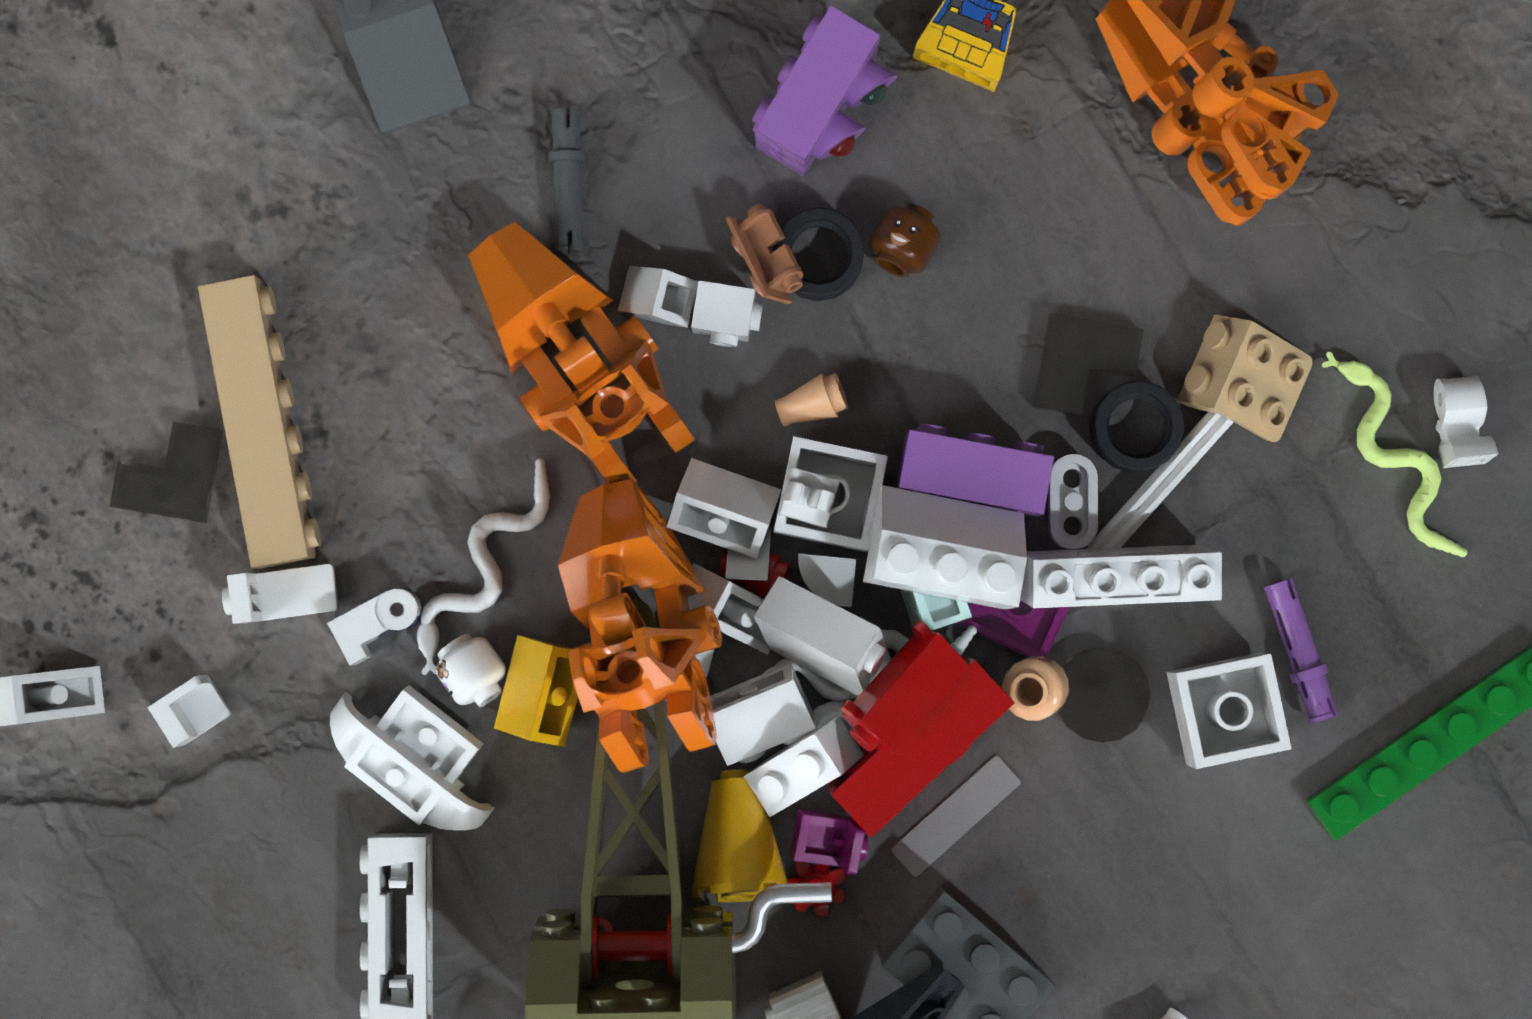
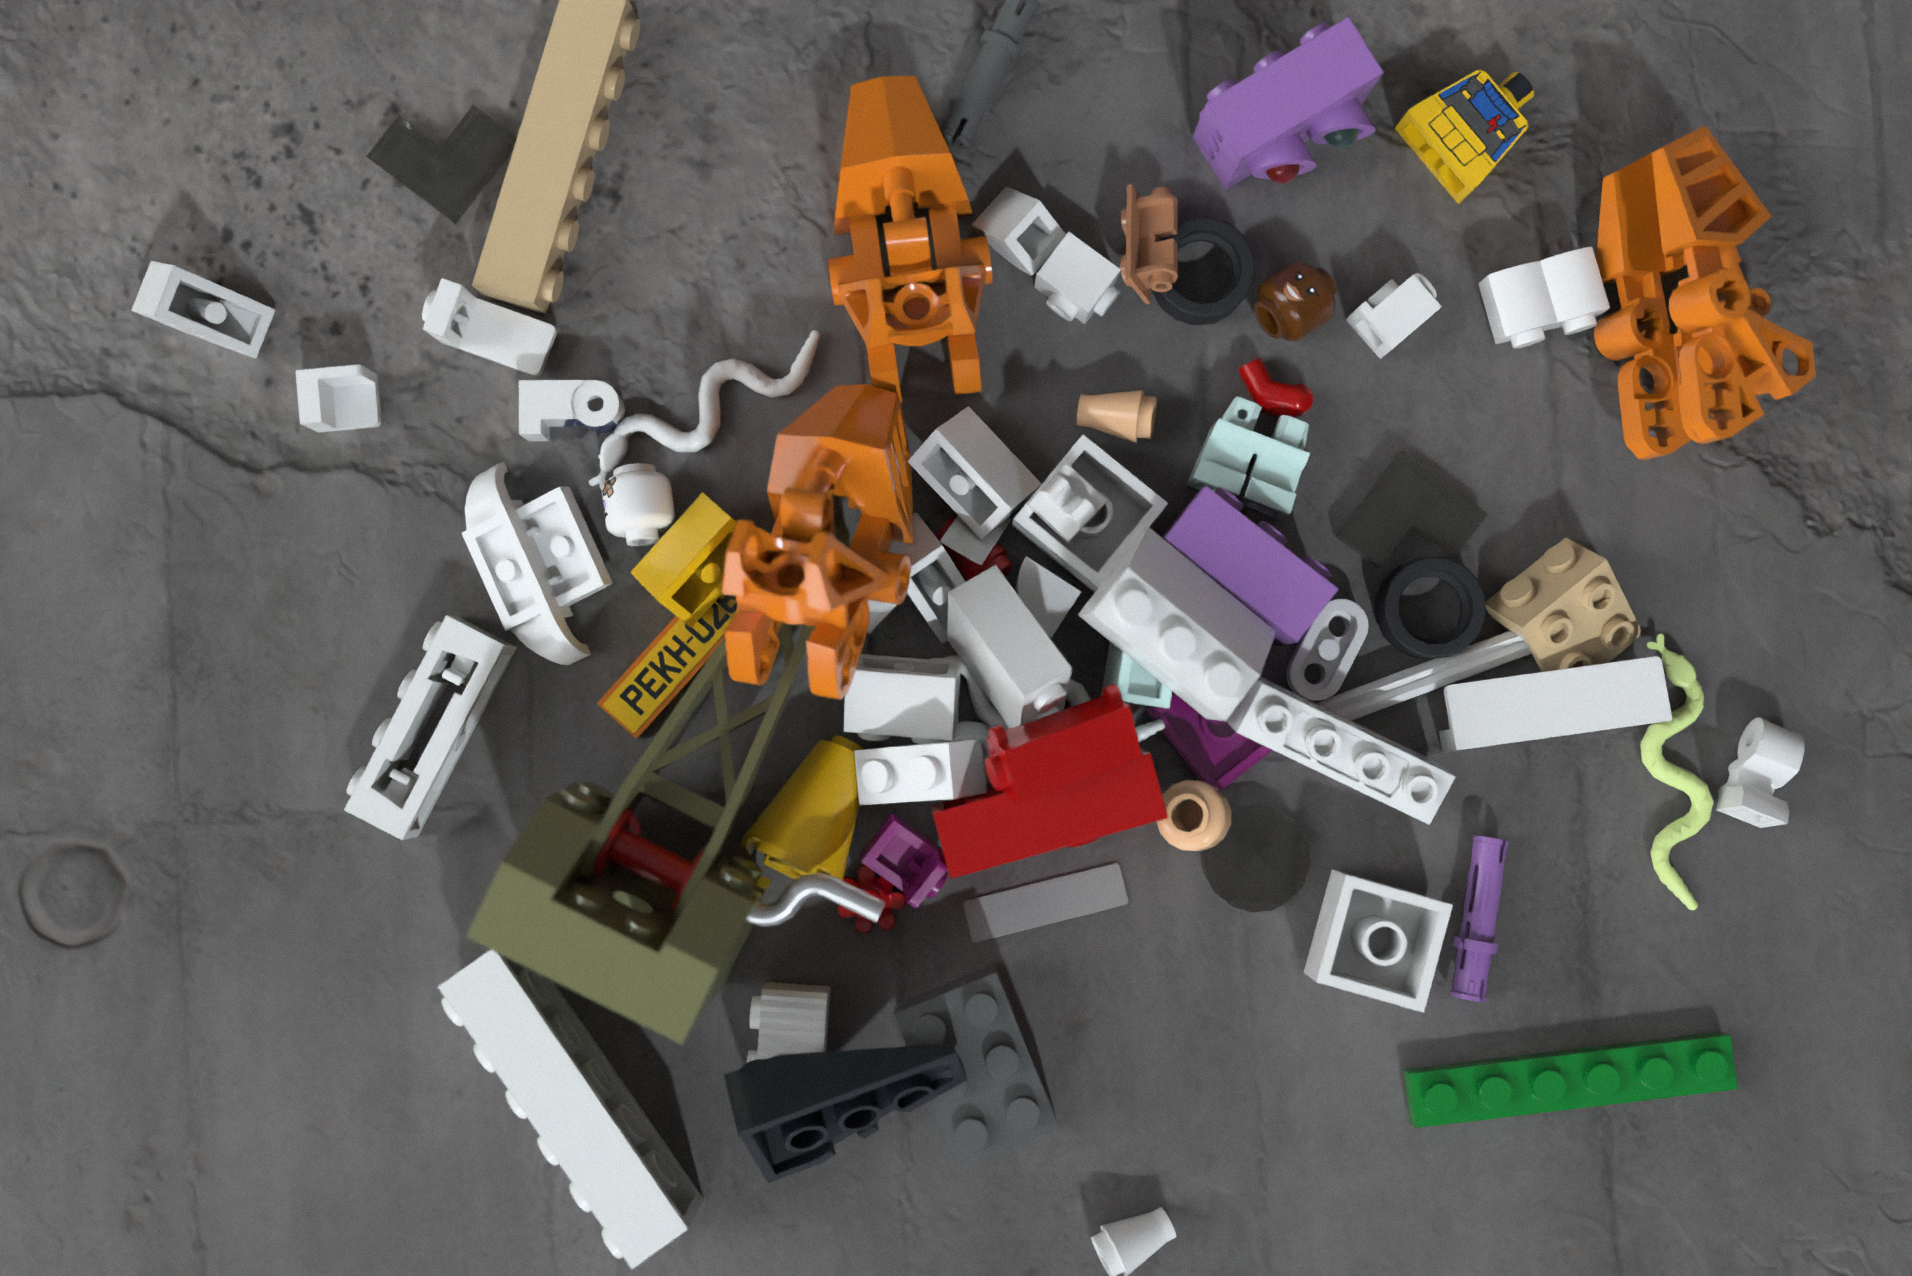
camera: 20 degrees right, 0 degrees up
(561, 786) = (666, 668): none -> tile
(926, 323) = (1273, 396): none -> red arm
(956, 379) = (1274, 464): none -> light aqua hips
(988, 208) = (1394, 313): none -> white brick
(1098, 134) = (1543, 297): none -> white brick
(1272, 452) = (1555, 703): none -> white panel

